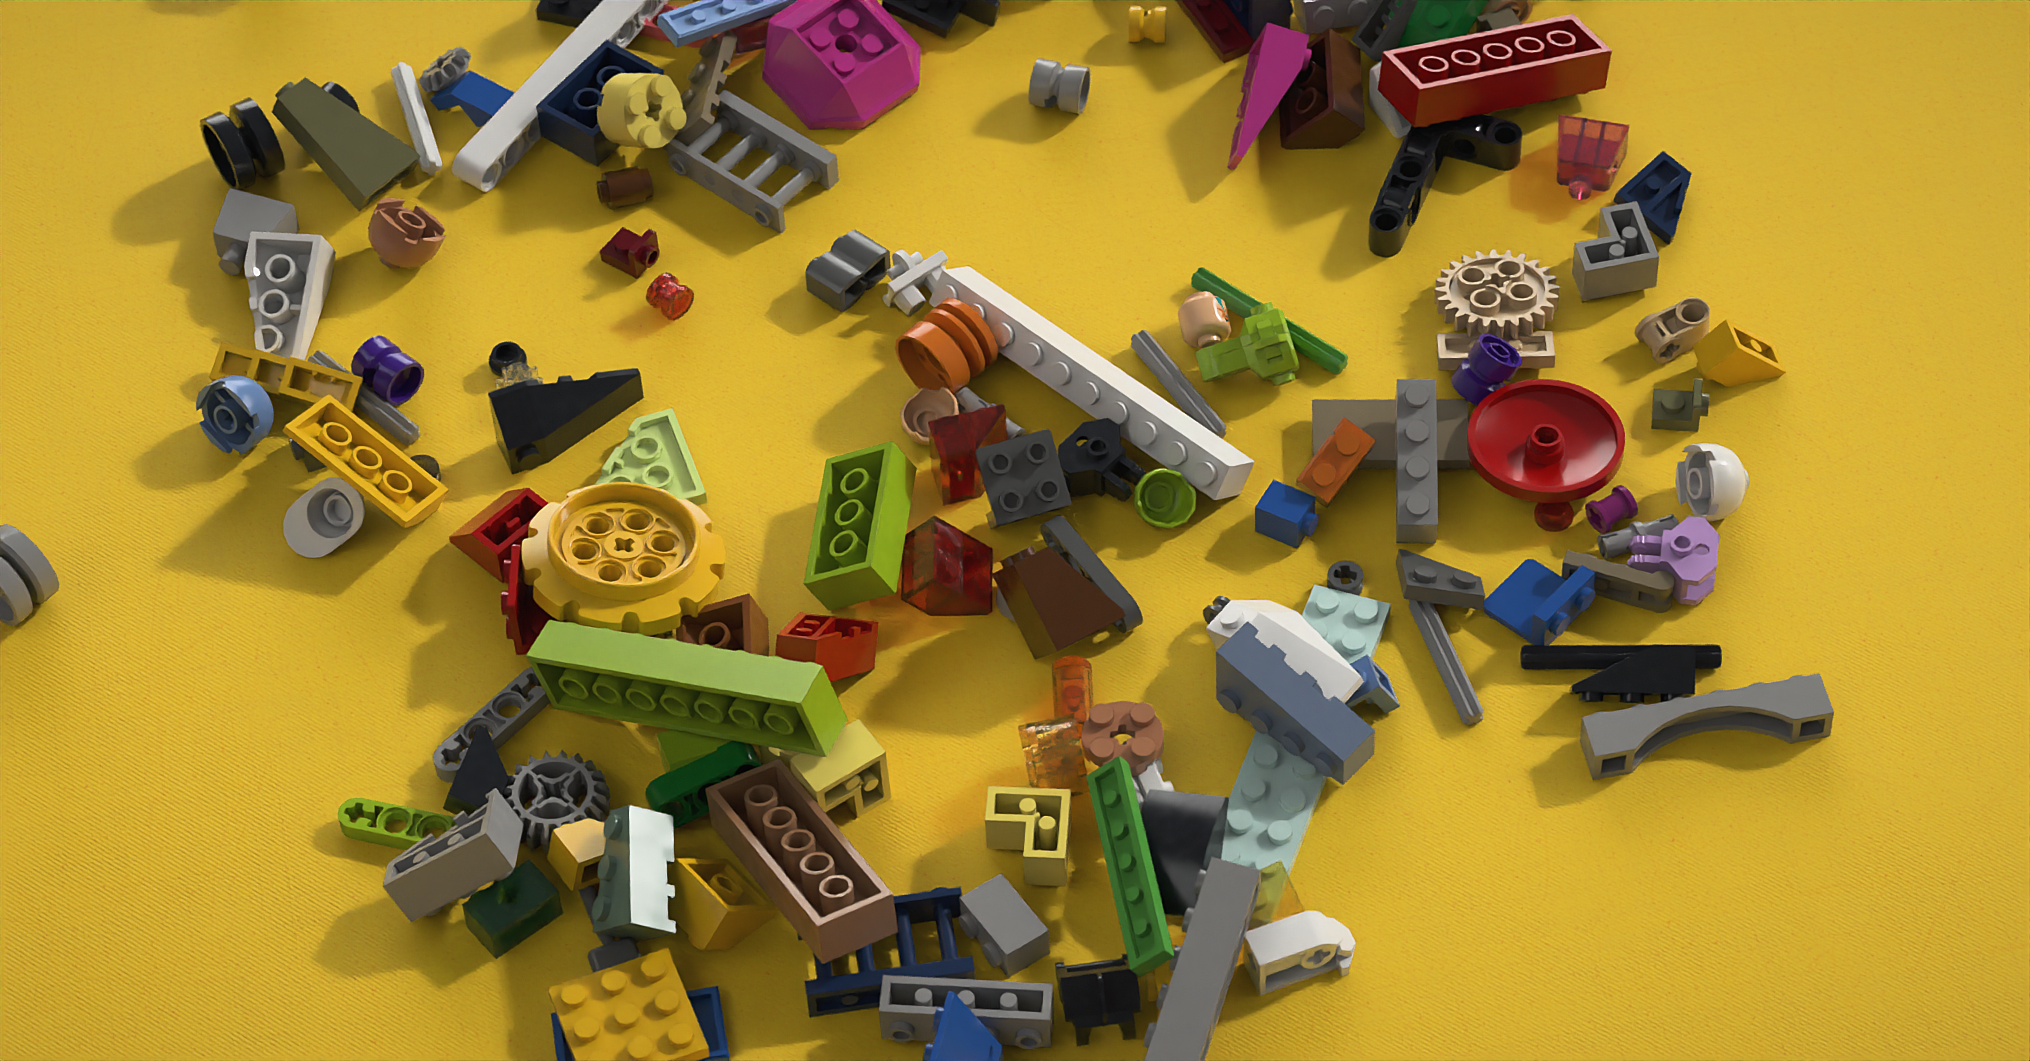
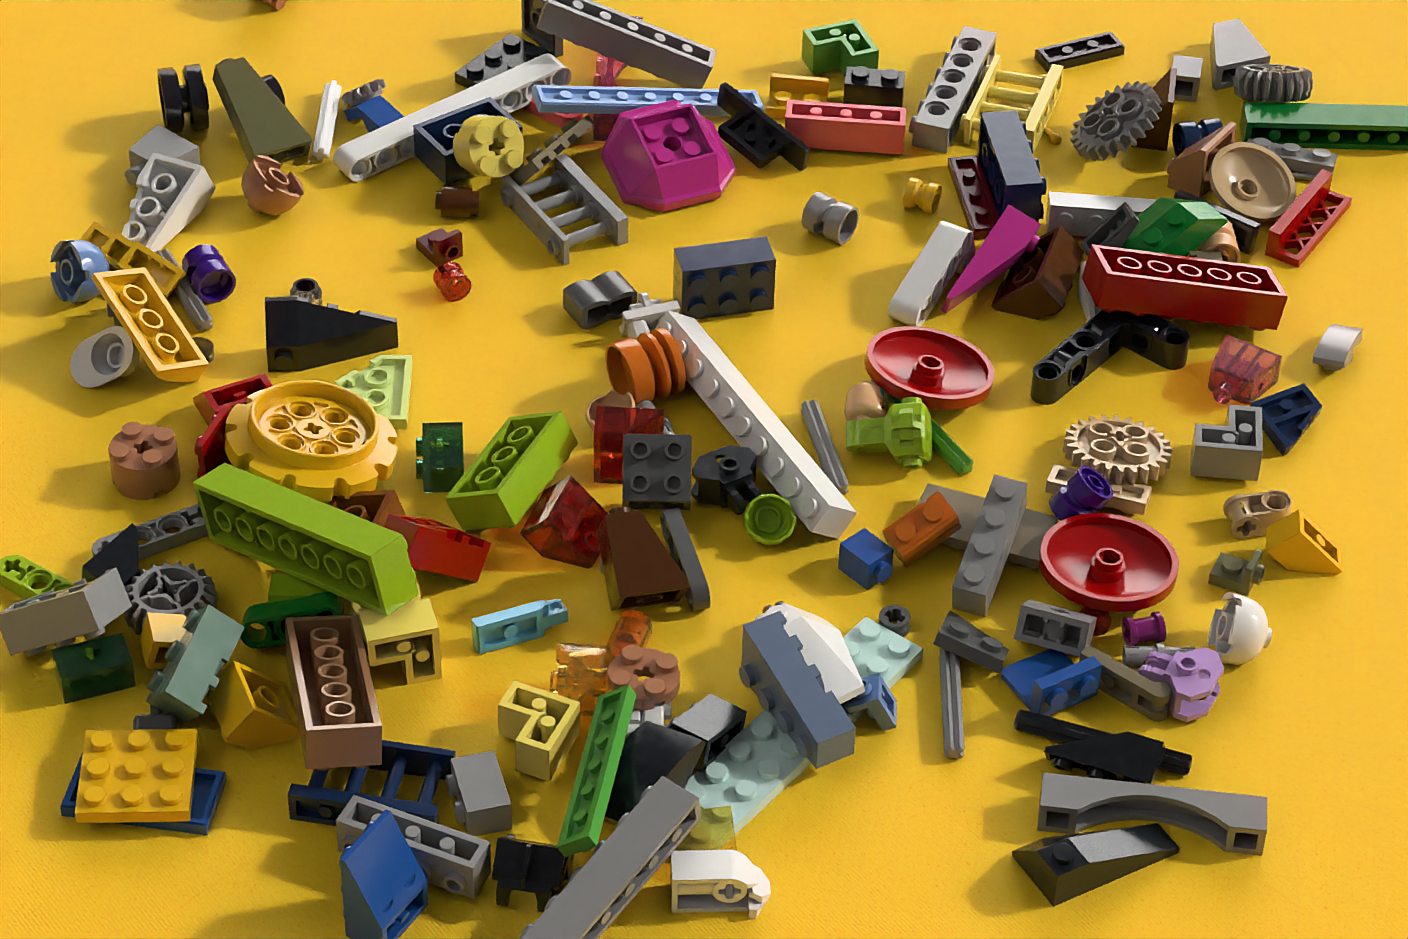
camera: 15 degrees right, 10 degrees down
(438, 636) = (144, 460): none -> nougat brick
(767, 528) = (441, 454): none -> clear green brick
(948, 711) = (516, 624): none -> medium azure hinge
(981, 204) = (724, 278): none -> brick
(1206, 127) = (944, 254): none -> white beam
(1210, 767) = (712, 722): none -> brick
(1254, 253) = (929, 366): none -> red dish
(1522, 538) = (1054, 627): none -> light grey brick
(1658, 799) = (1084, 861): none -> wedge
(1678, 90) = (1337, 346): none -> light grey slope

